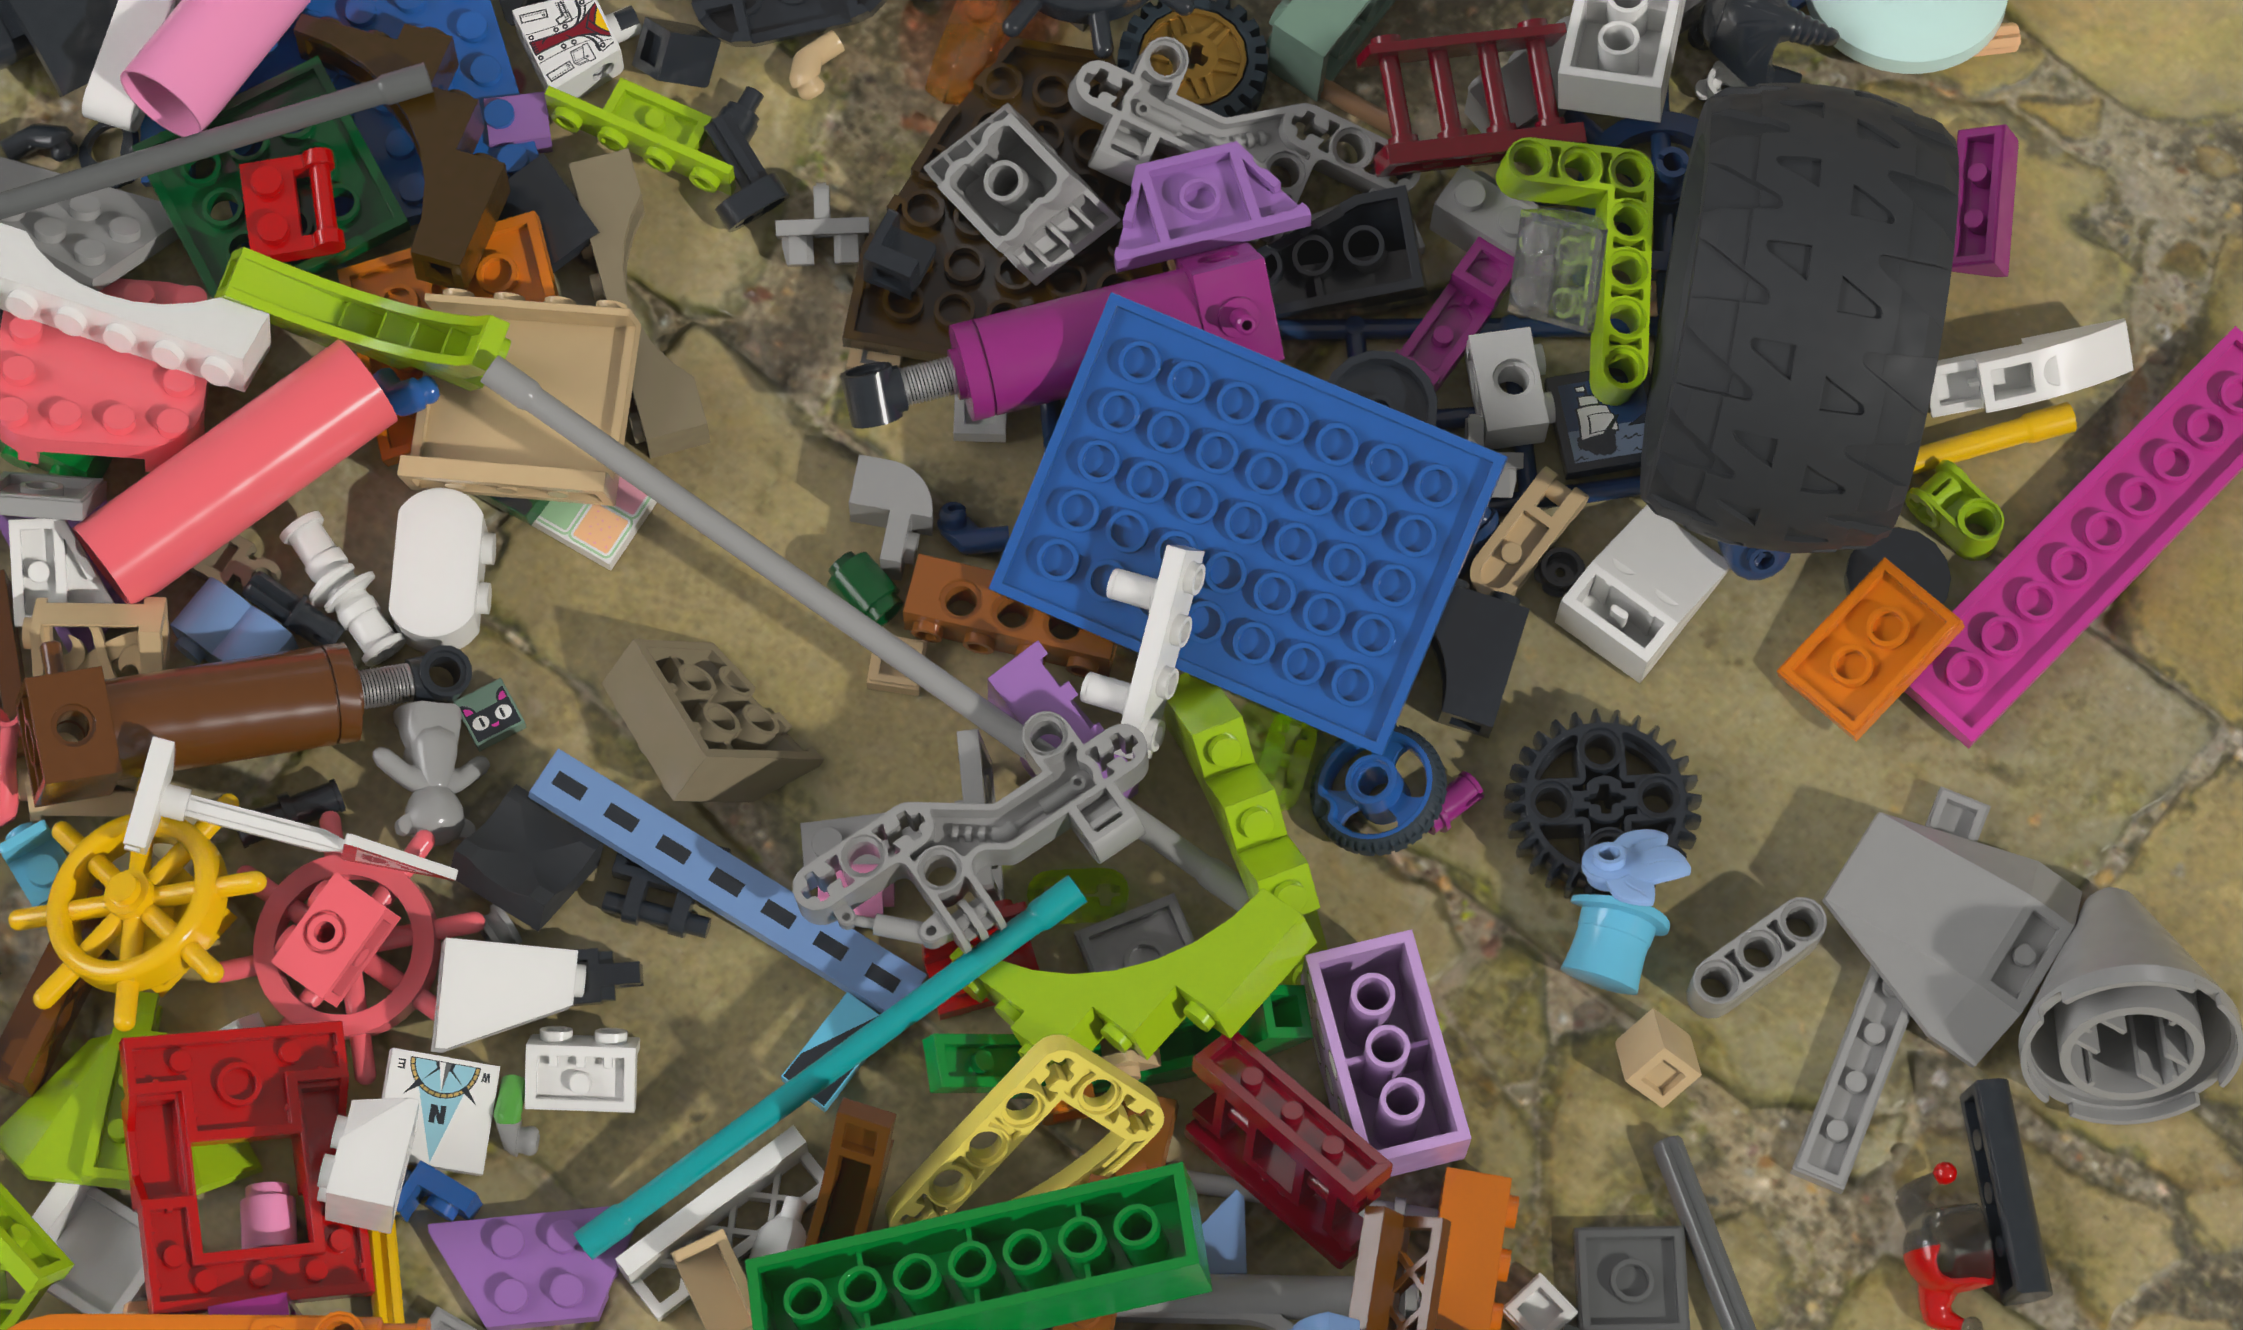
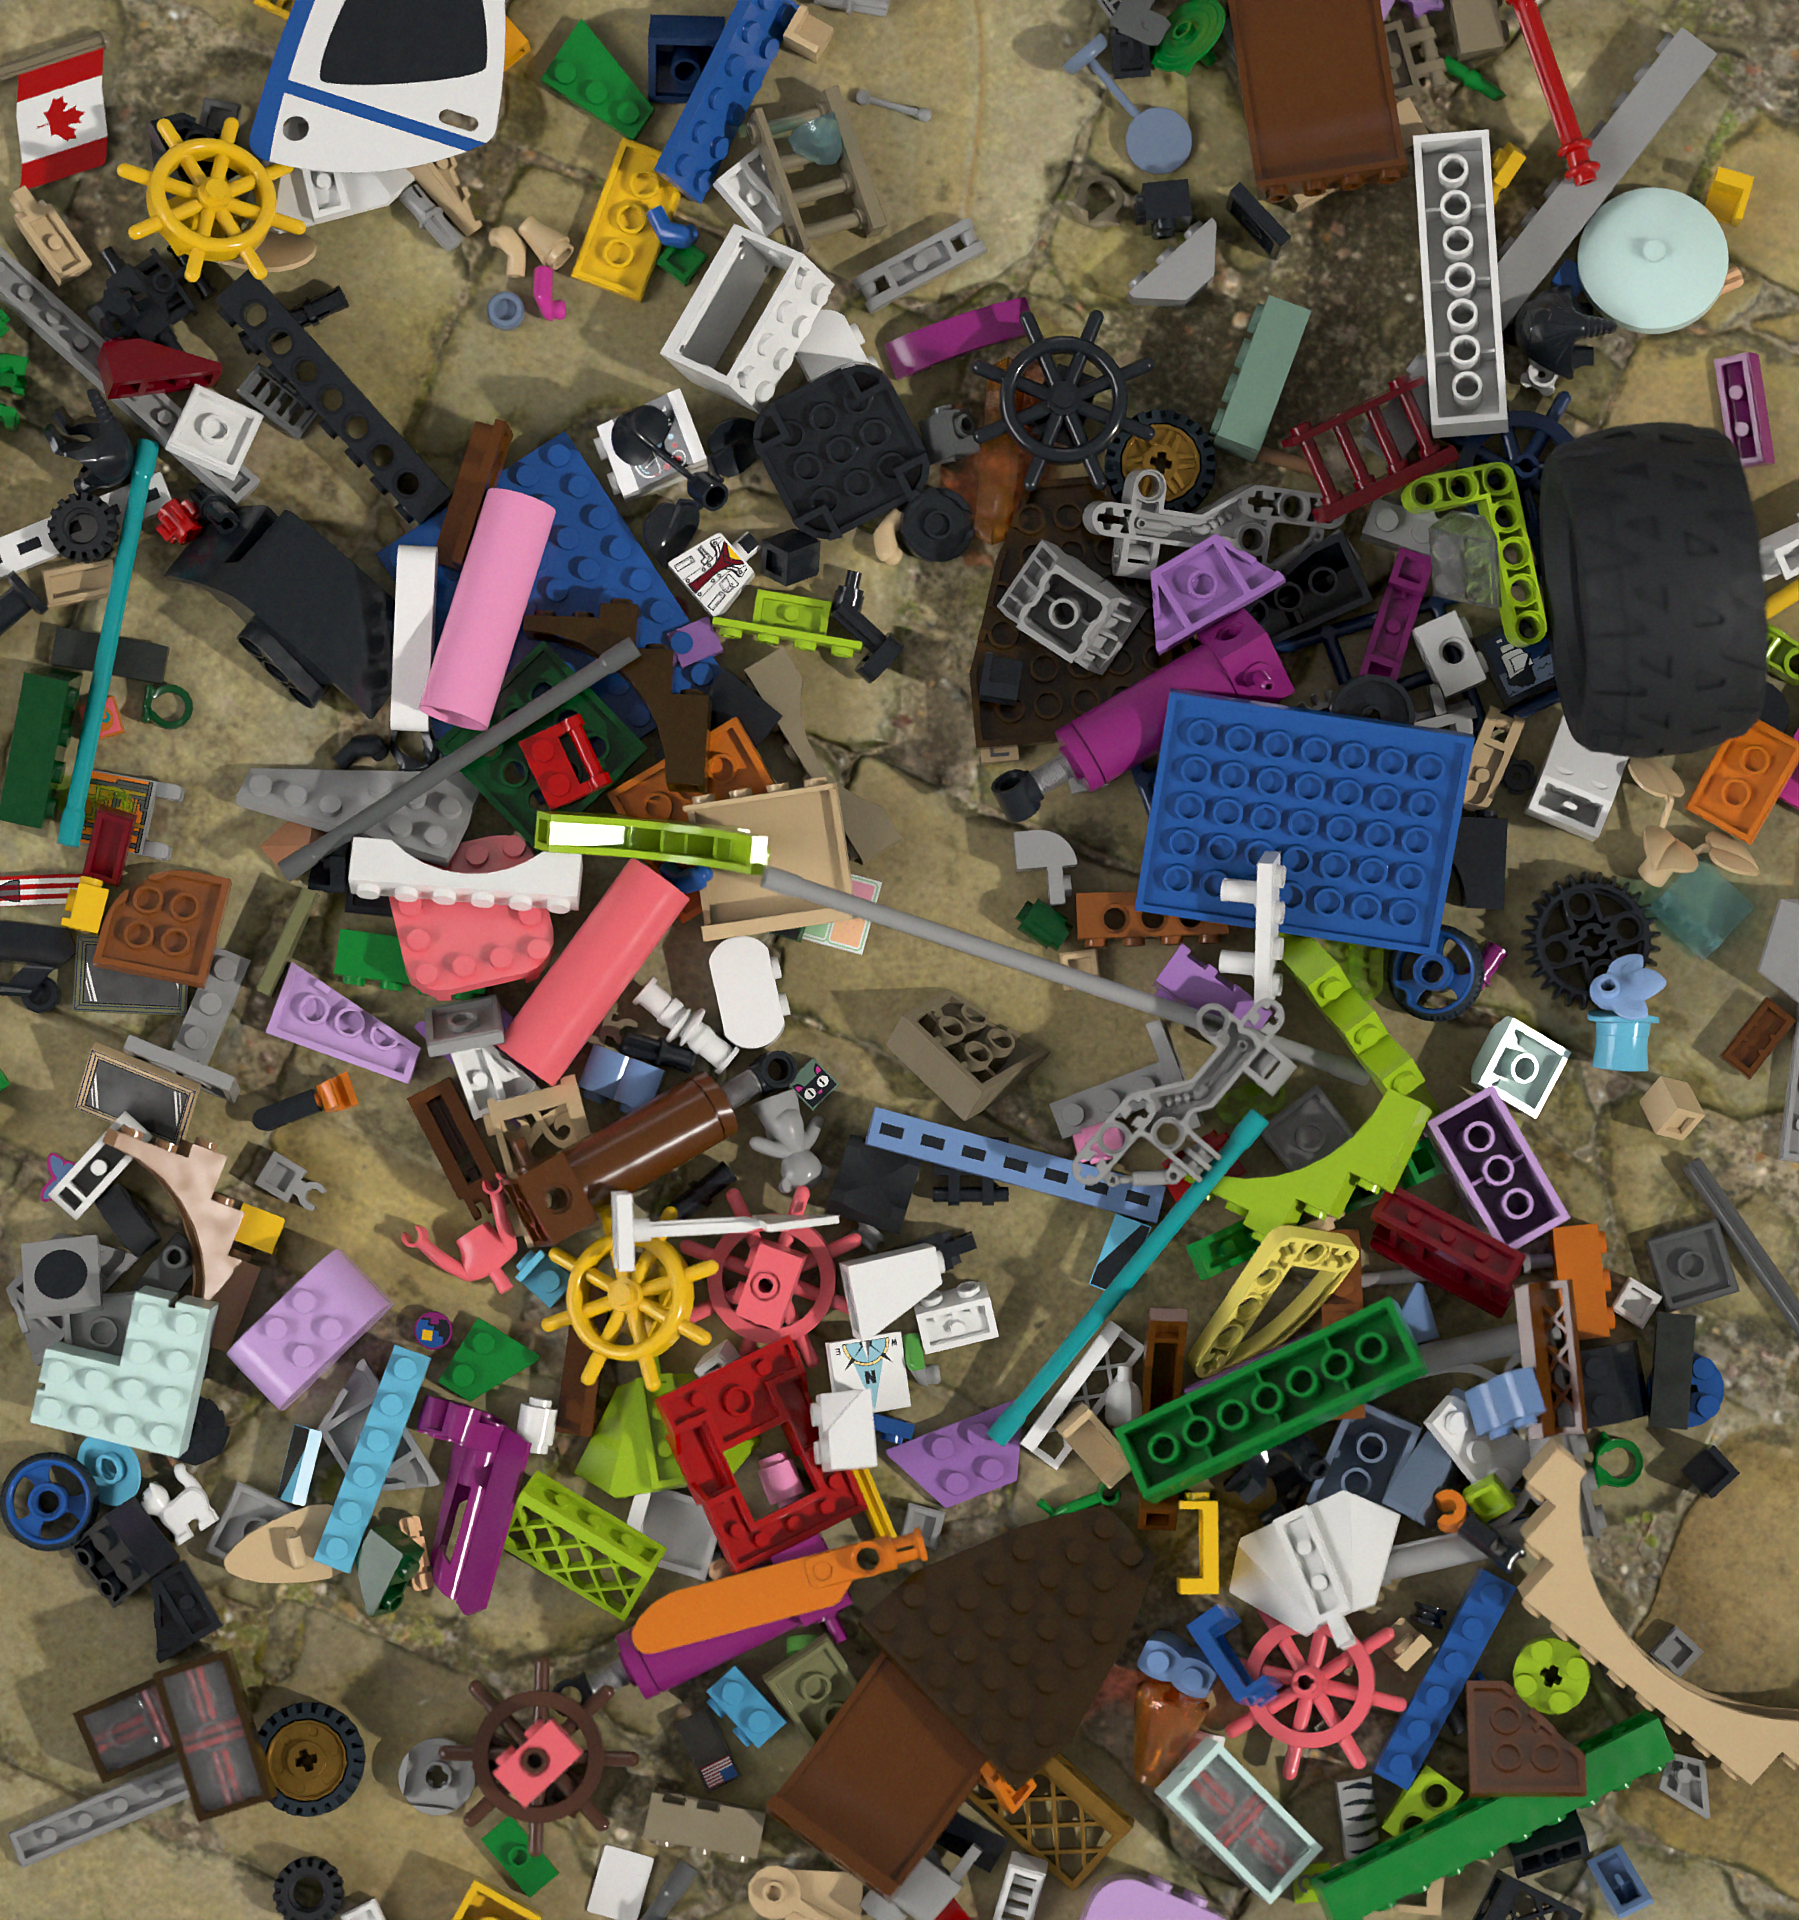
camera: 15 degrees left, 15 degrees up
(799, 234) = (951, 661): light grey hips -> none
(879, 64) = (937, 525): none -> black tile
(966, 535) = (1102, 863): dark blue arm -> none
(1465, 942) = (1519, 1065): none -> light aqua slope
(1743, 700) = (1667, 853): none -> tan plant
(1766, 807) = (1701, 909): none -> clear light blue hinge
(1770, 937) = (1736, 1009): light grey beam -> none
(1801, 997) = (1757, 1038): none -> reddish brown plate

